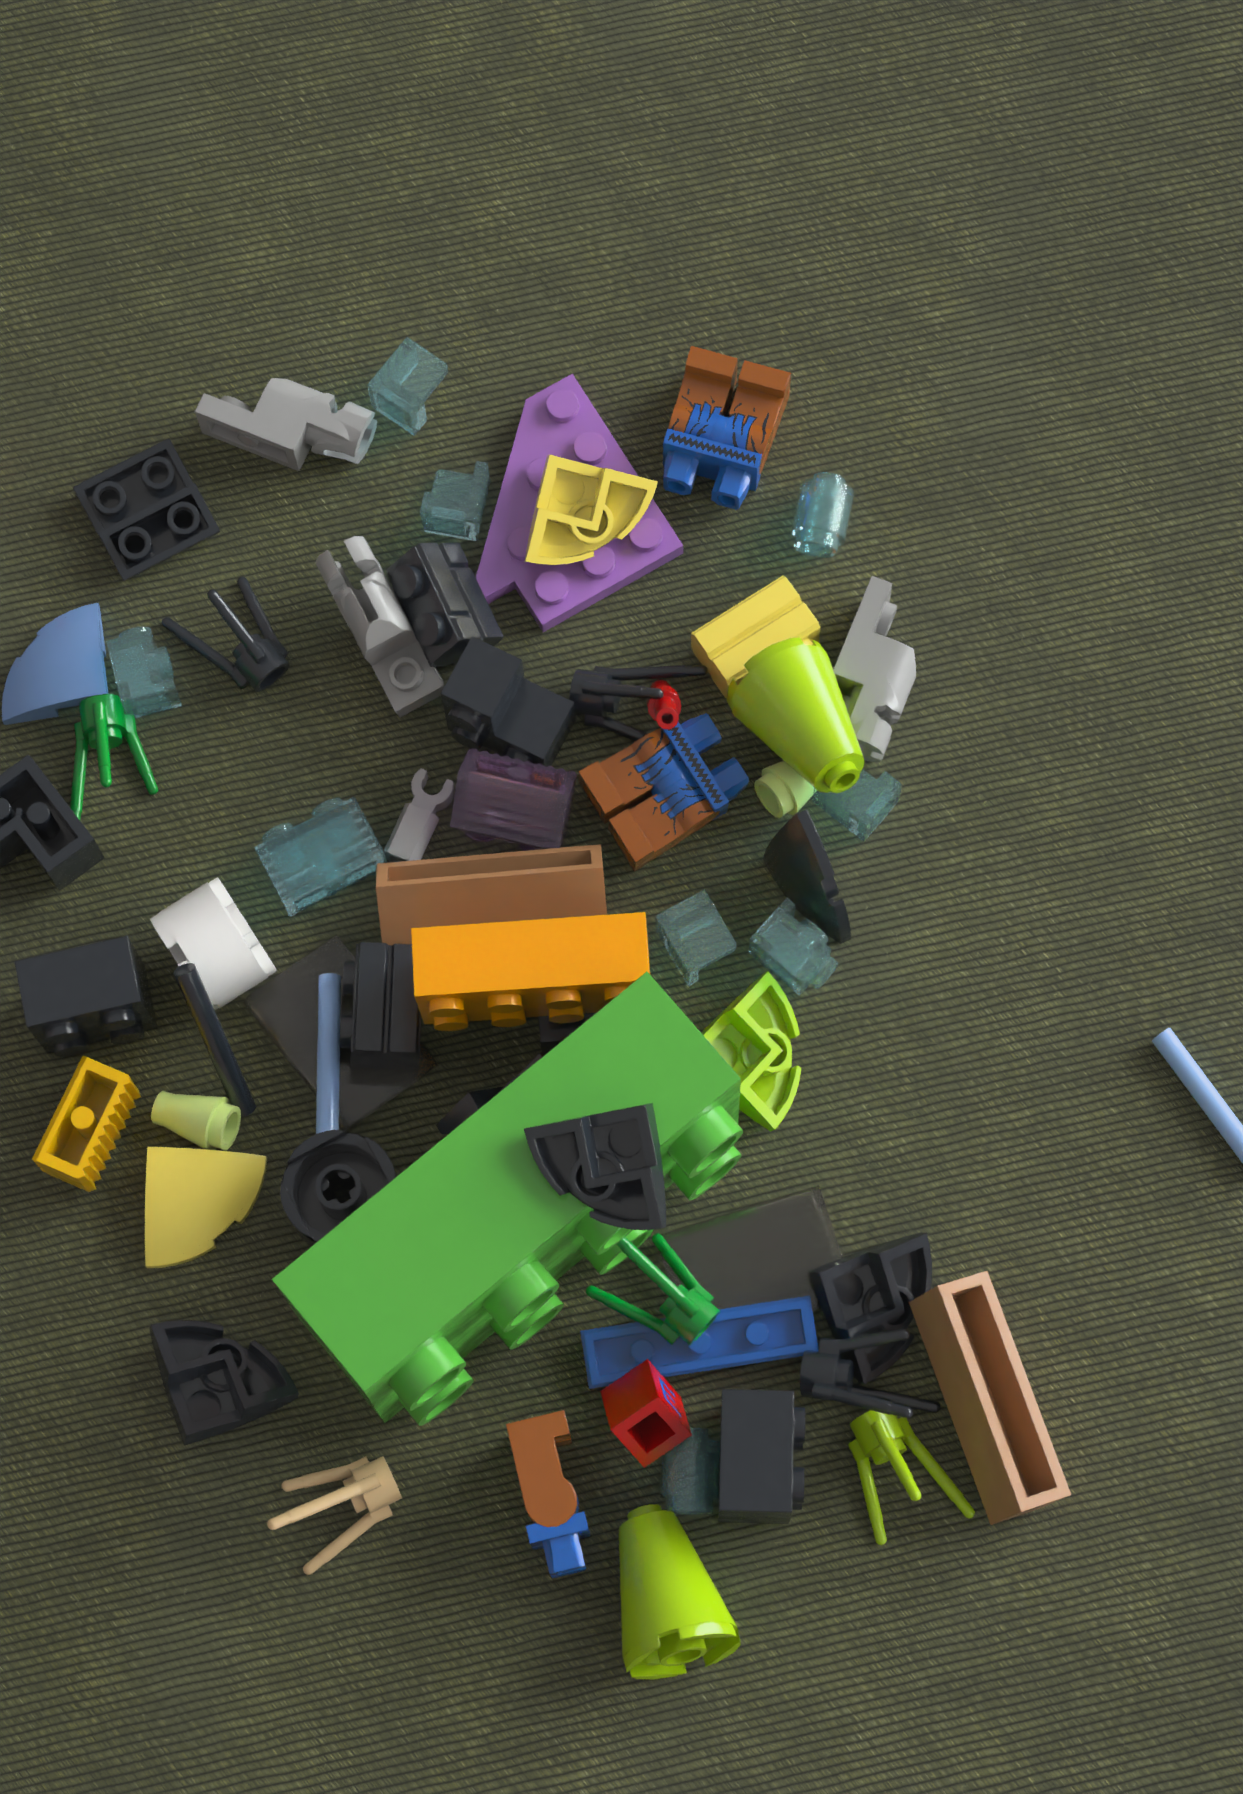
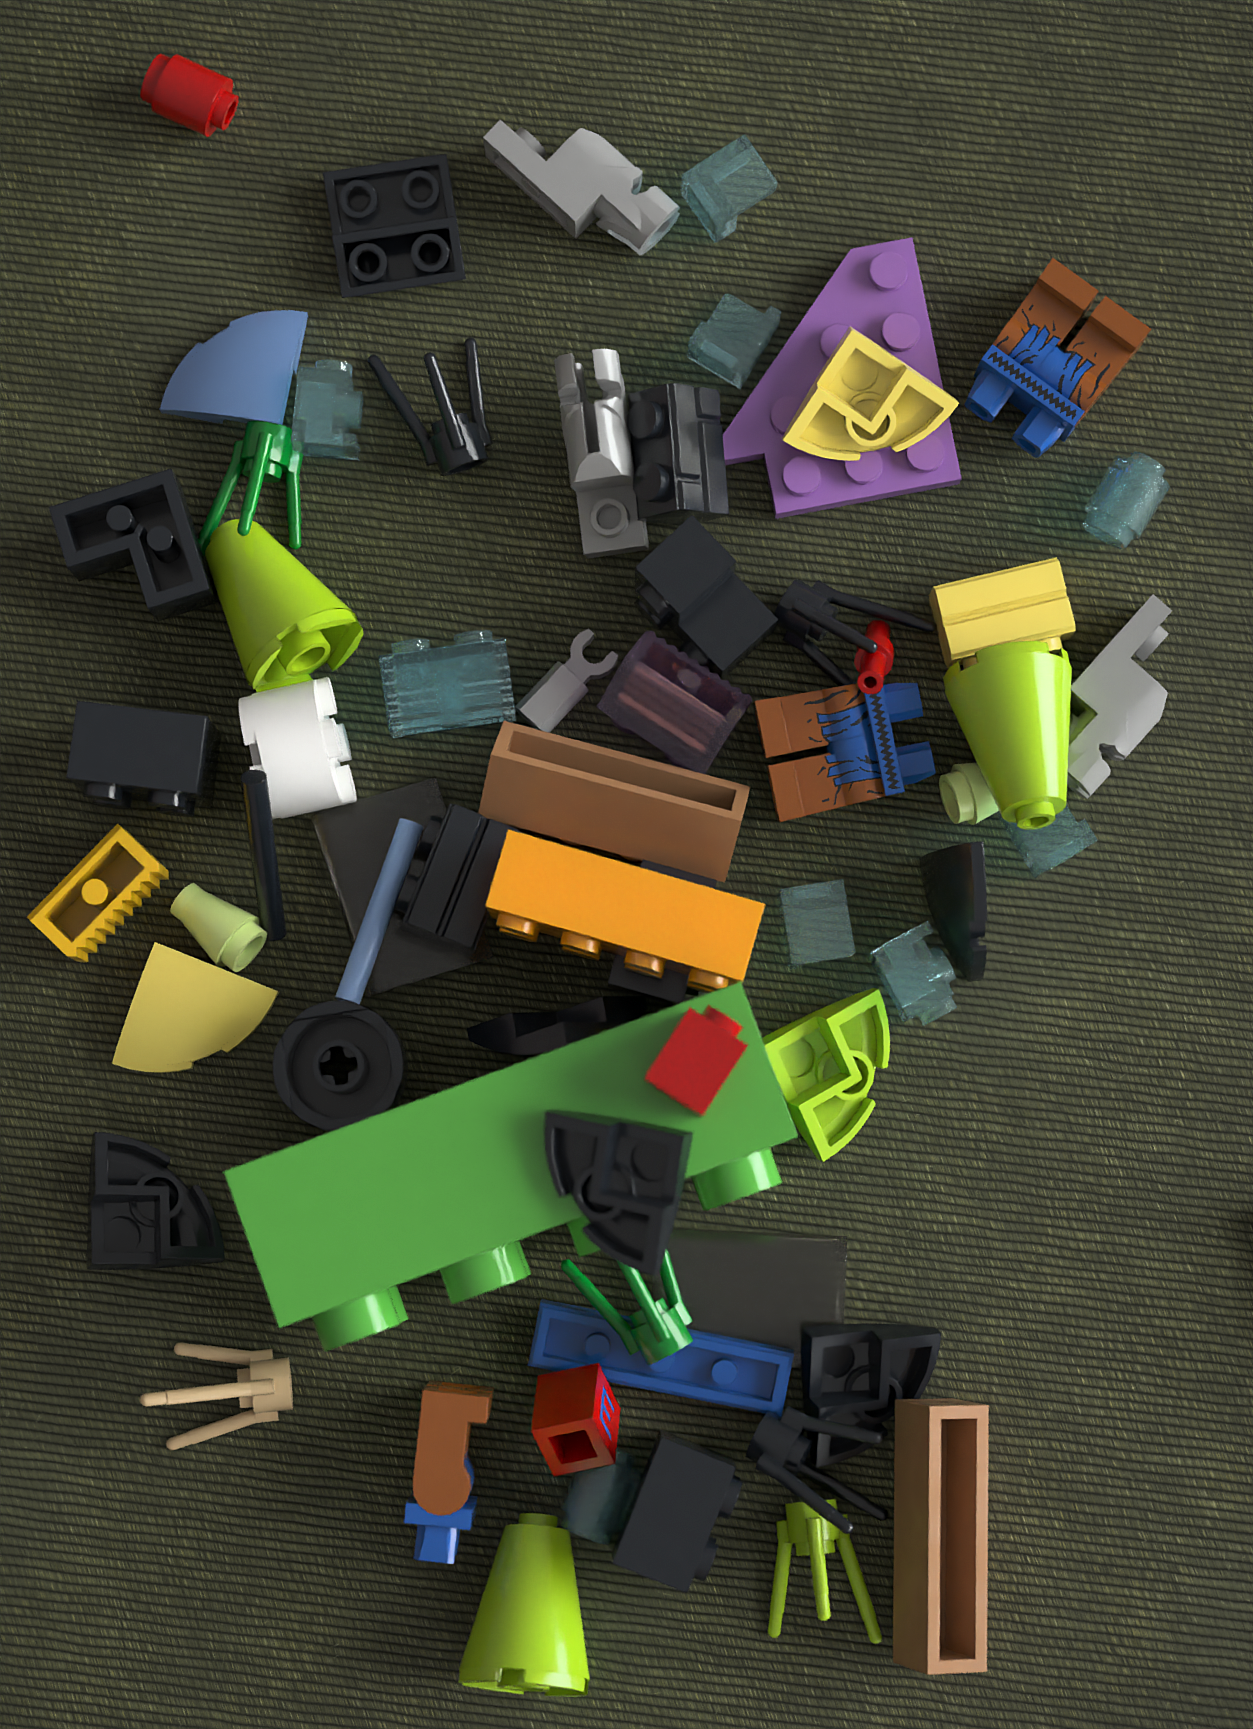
camera: 15 degrees right, 10 degrees up
(156, 840) = (277, 609): none -> lime cone
(633, 1041) = (697, 1059): none -> red brick

